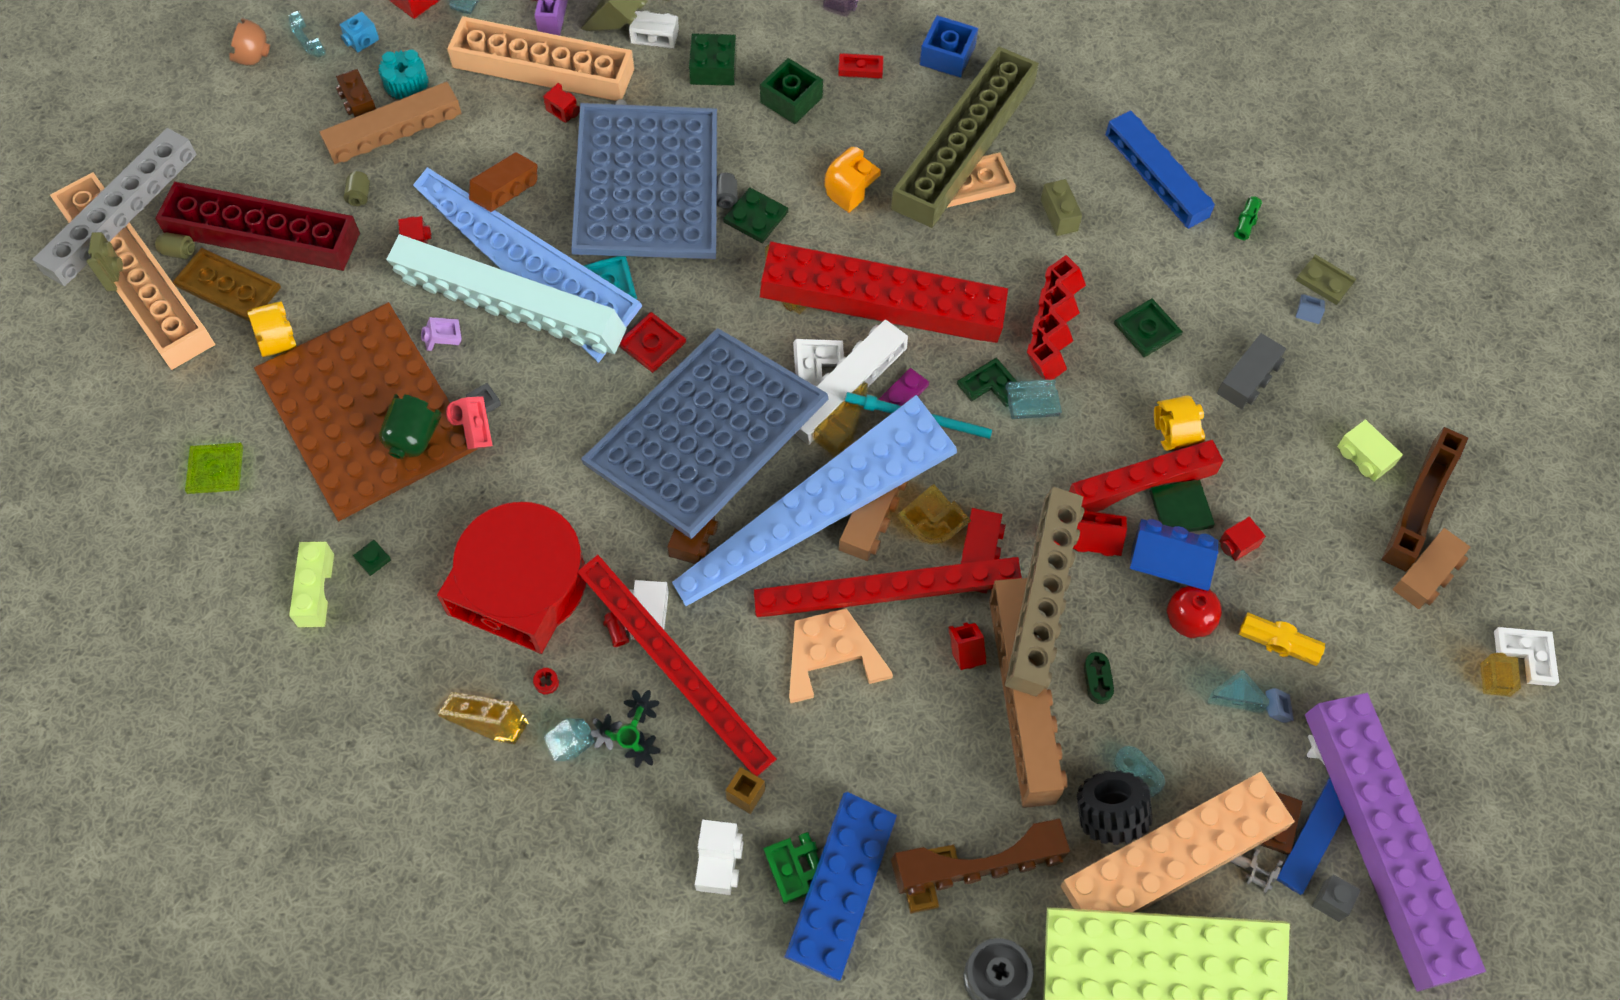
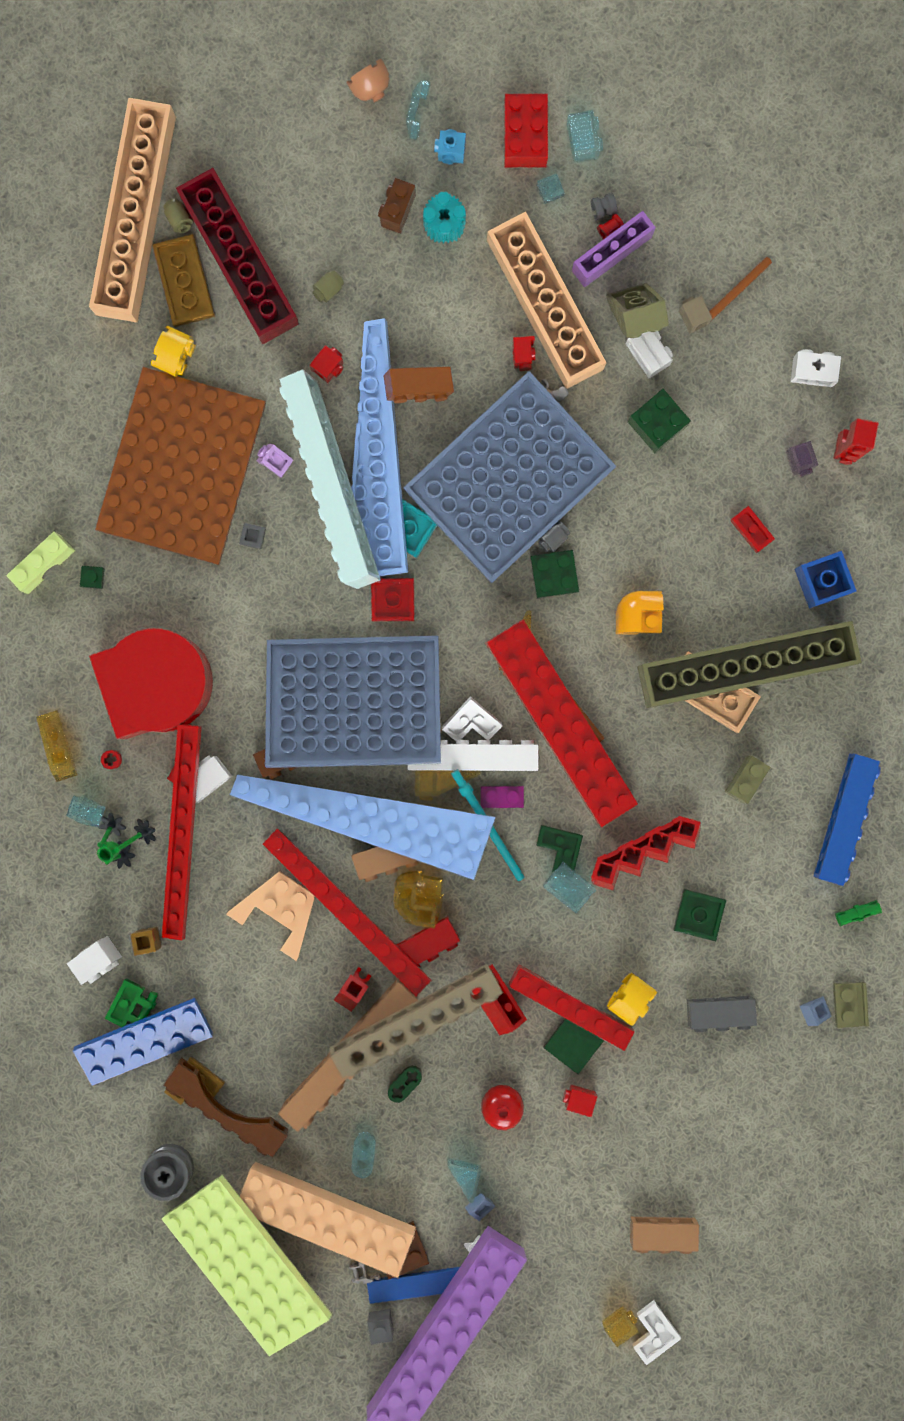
camera: 50 degrees right, 25 degrees up
(104, 261) = (107, 202): olive plate -> none
(115, 205) = (146, 150): light grey brick -> none
(214, 468) = (59, 417): clear neon green tile -> none
(390, 122) = (399, 252): medium nougat brick -> none
(408, 426) = (181, 518): dark green cylinder -> none
(472, 415) = (230, 544): coral plate -> none
(791, 90) = (679, 504): dark green brick -> none
(1114, 807) = (332, 1151): black tyre -> none
(1174, 554) = (525, 1070): blue slope -> none
(1282, 638) = (529, 1176): yellow piece -> none
(1369, 450) = (723, 1134): yellowish green brick -> none
(1415, 518) = (681, 1202): reddish brown arch -> none

